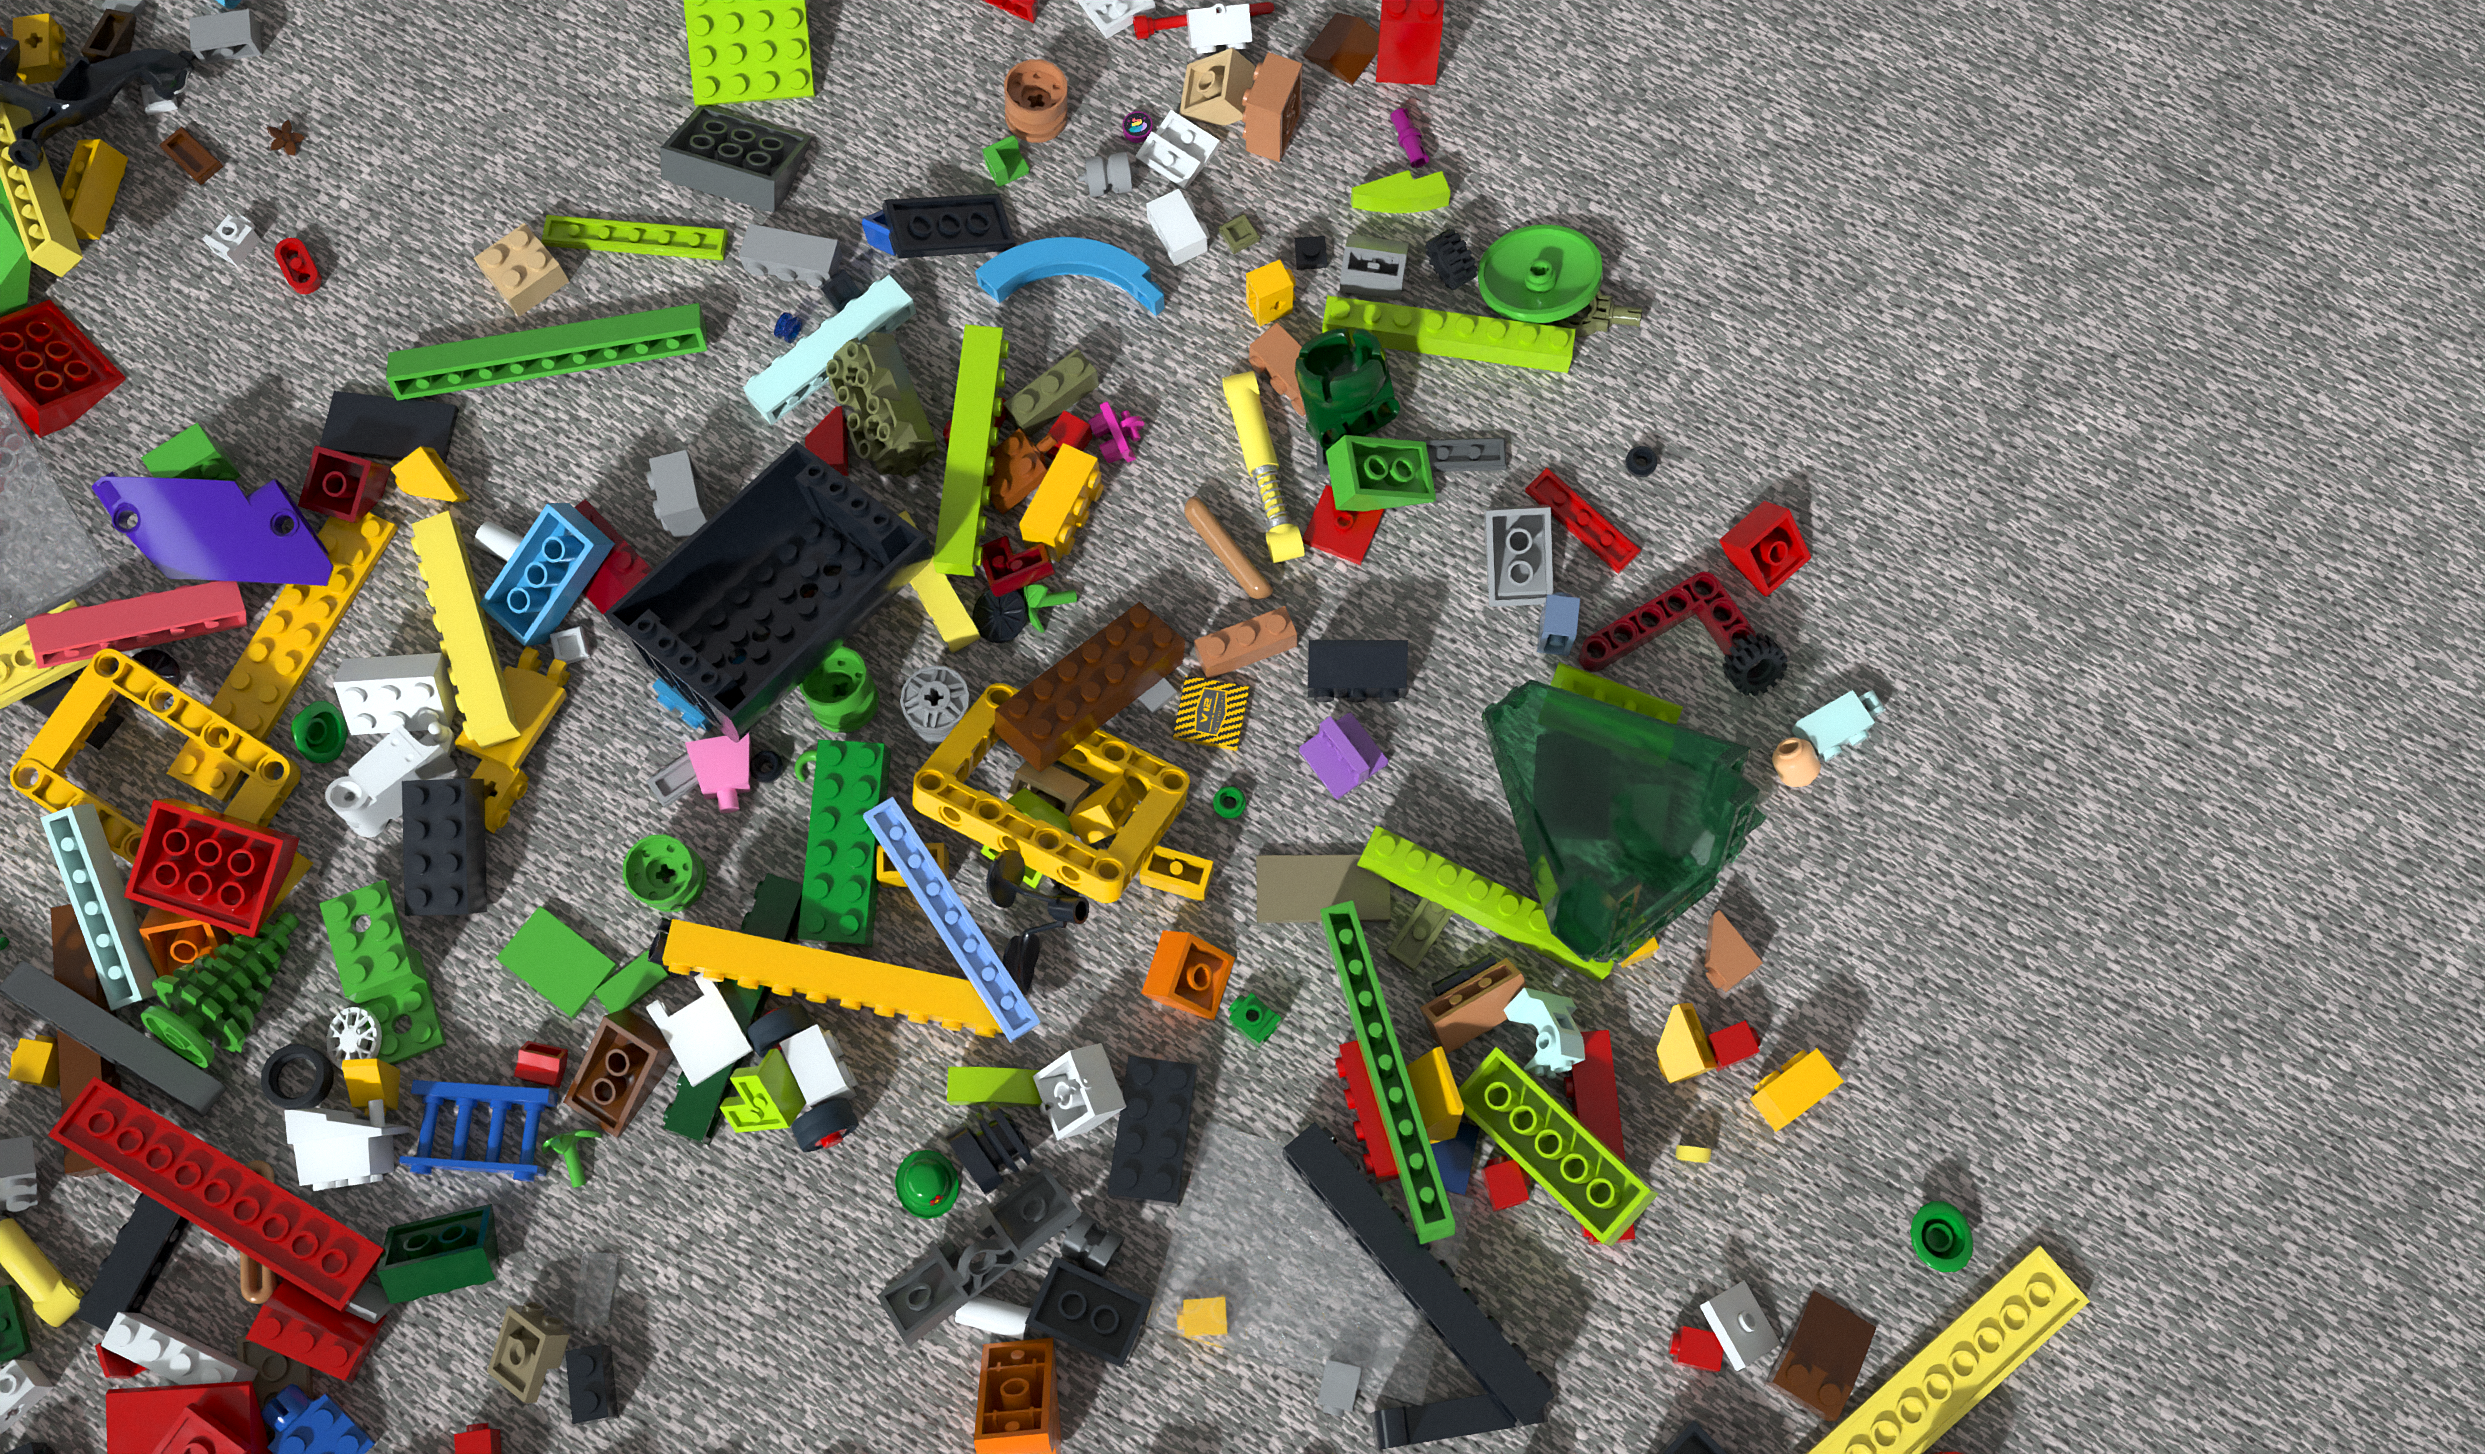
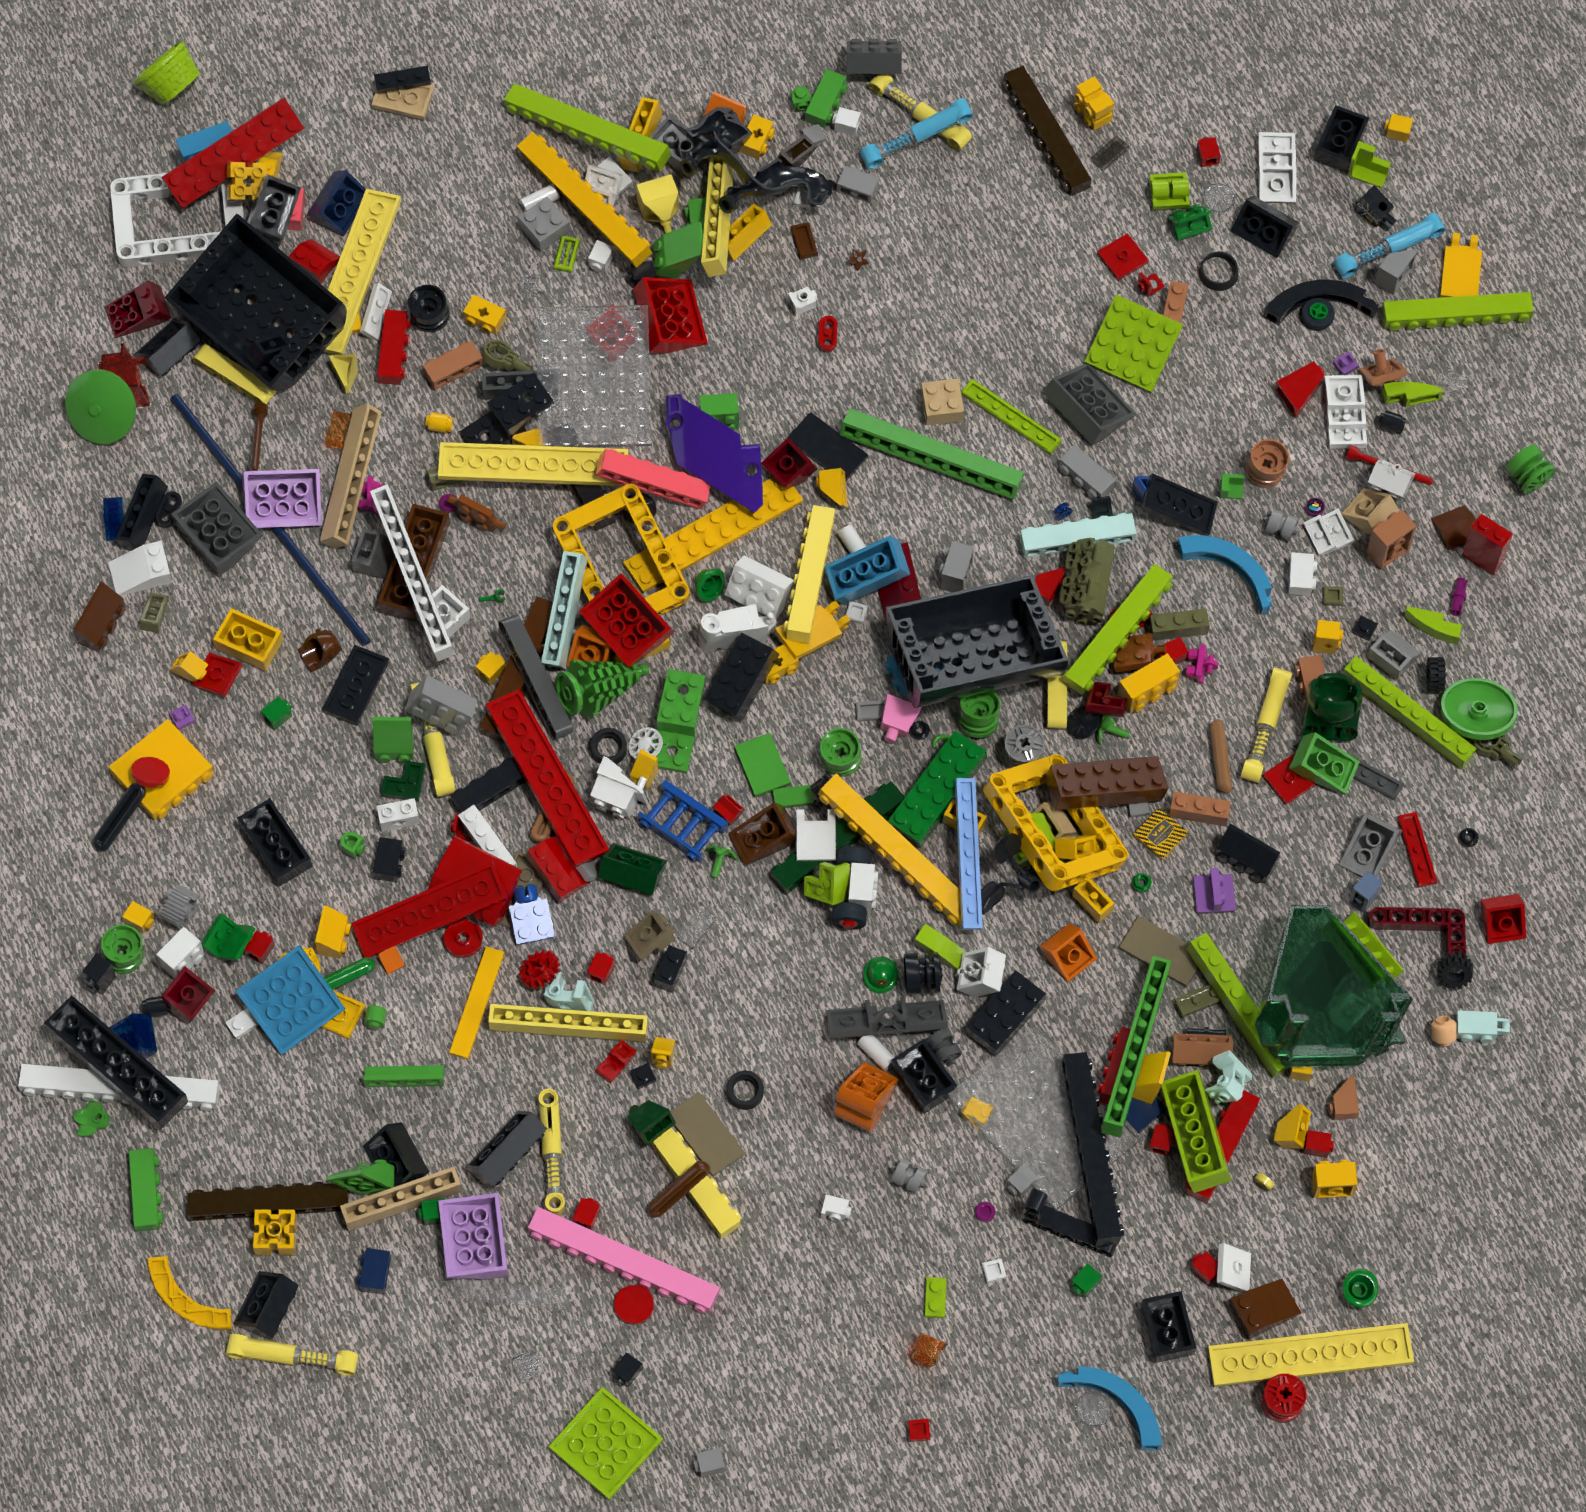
camera: 30 degrees right, 5 degrees down
(1256, 1031) = (1087, 998): green brick -> none

